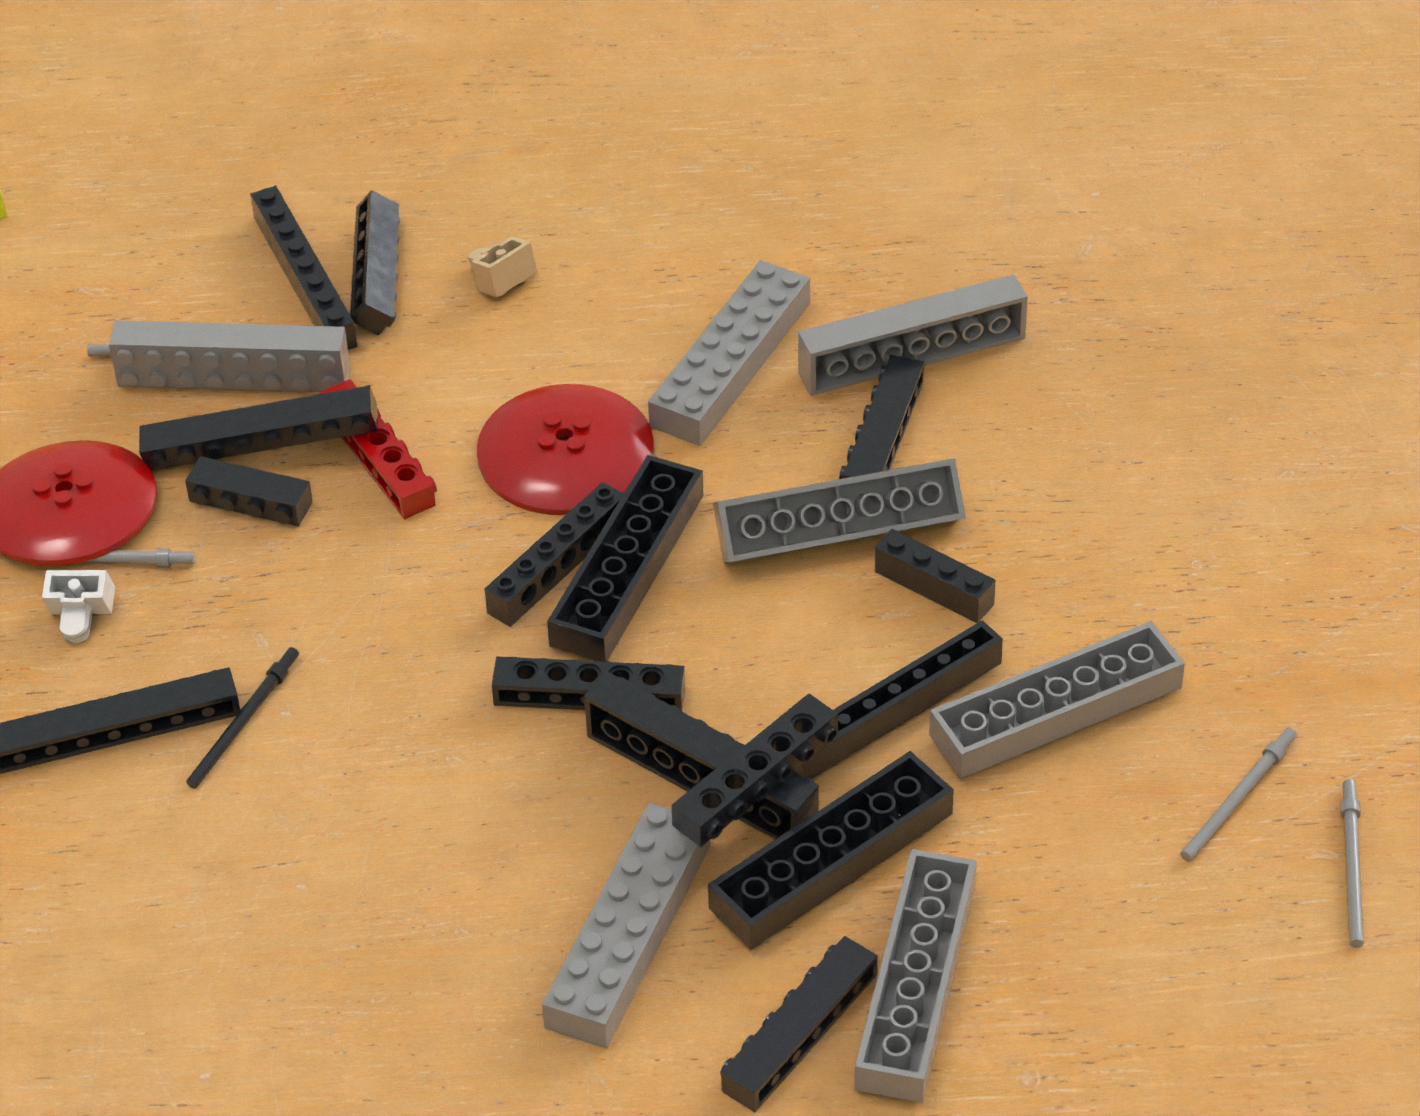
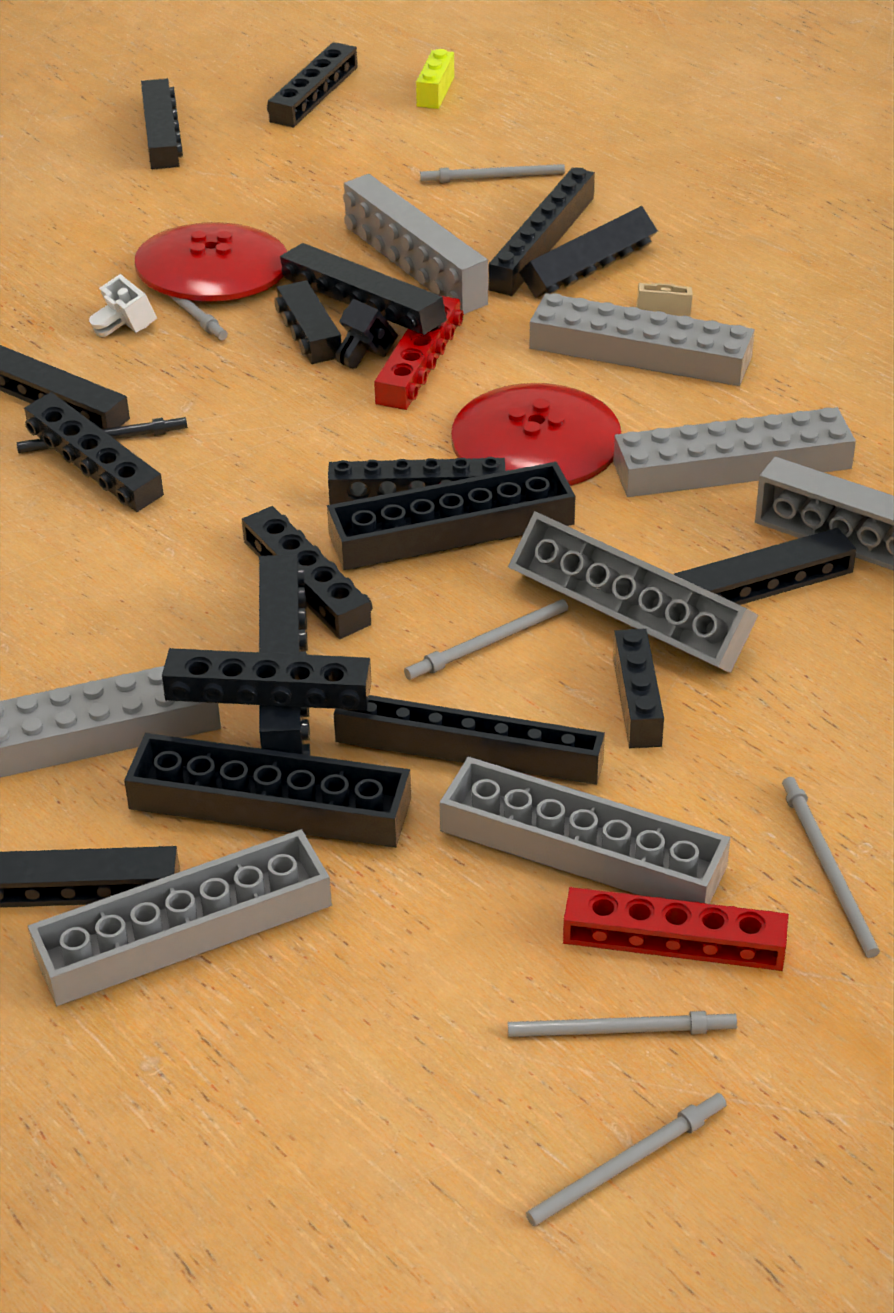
camera: 50 degrees right, 5 degrees down
(131, 274) = (446, 174): none -> light grey bar
(254, 732) = (94, 452): none -> black brick
(324, 461) = (366, 331): none -> black brick
(526, 309) = (642, 339): none -> light grey brick
(777, 670) = (436, 661): none -> light grey bar
(1125, 567) = (798, 799): none -> light grey bar
(1184, 709) = (675, 928): none -> red brick

